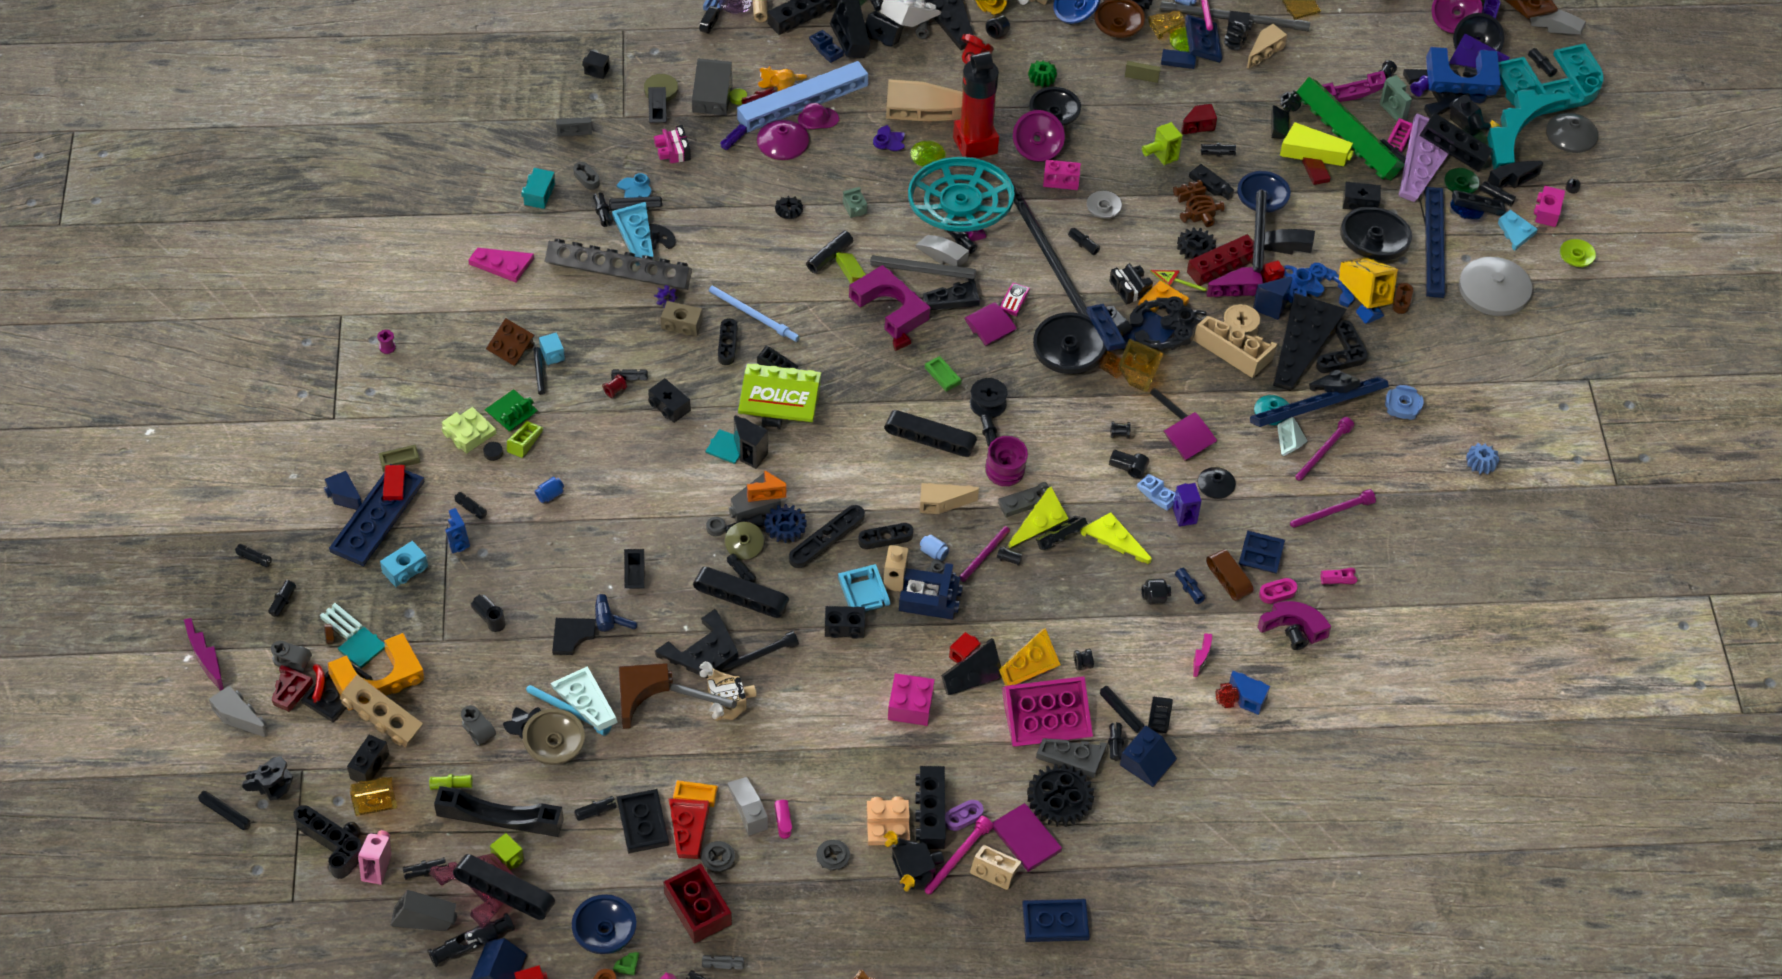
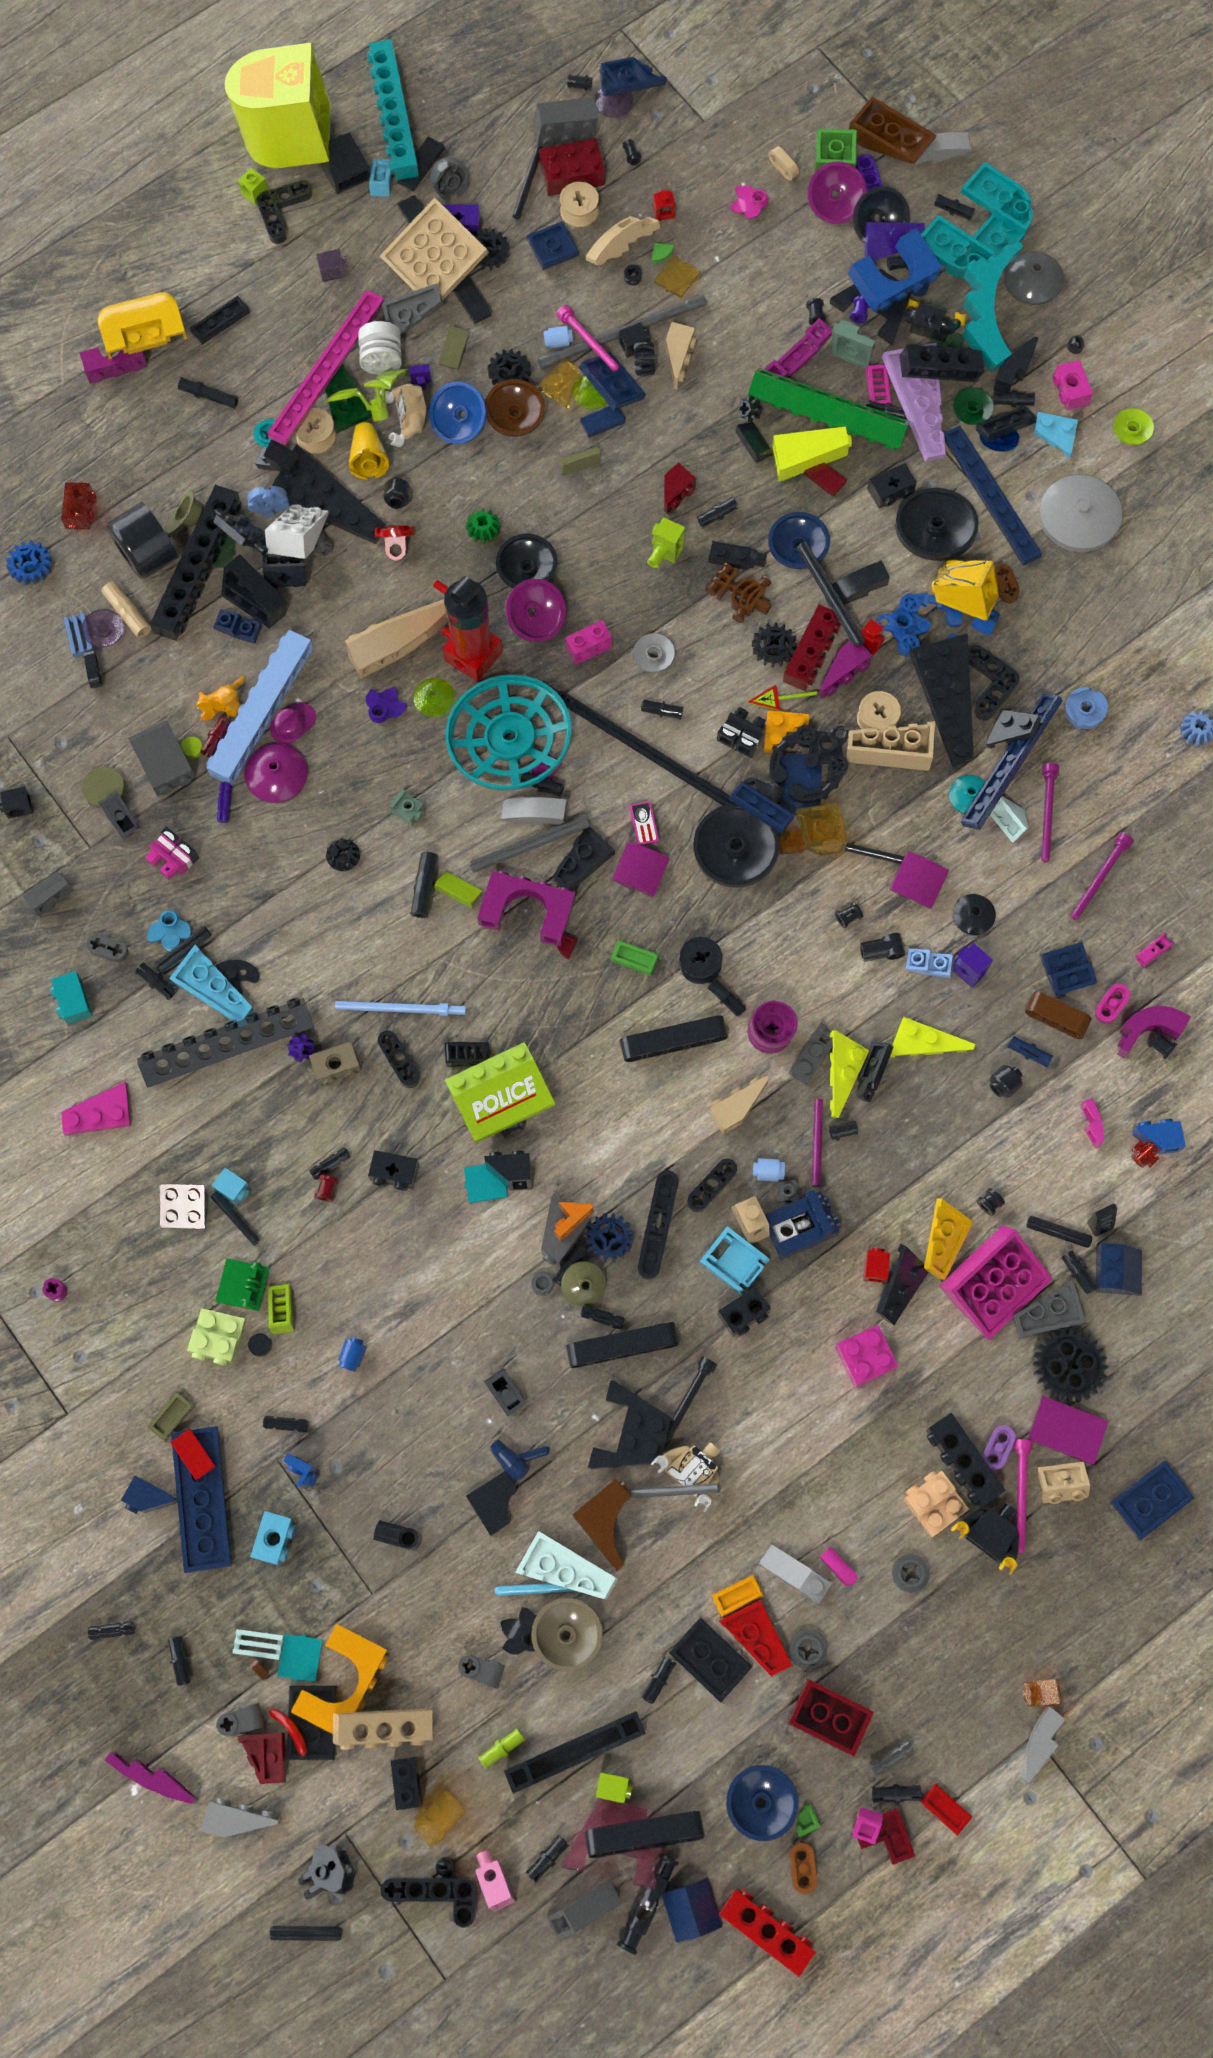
camera: 30 degrees left, 20 degrees up
(1272, 297) = (894, 667): dark blue slope -> none

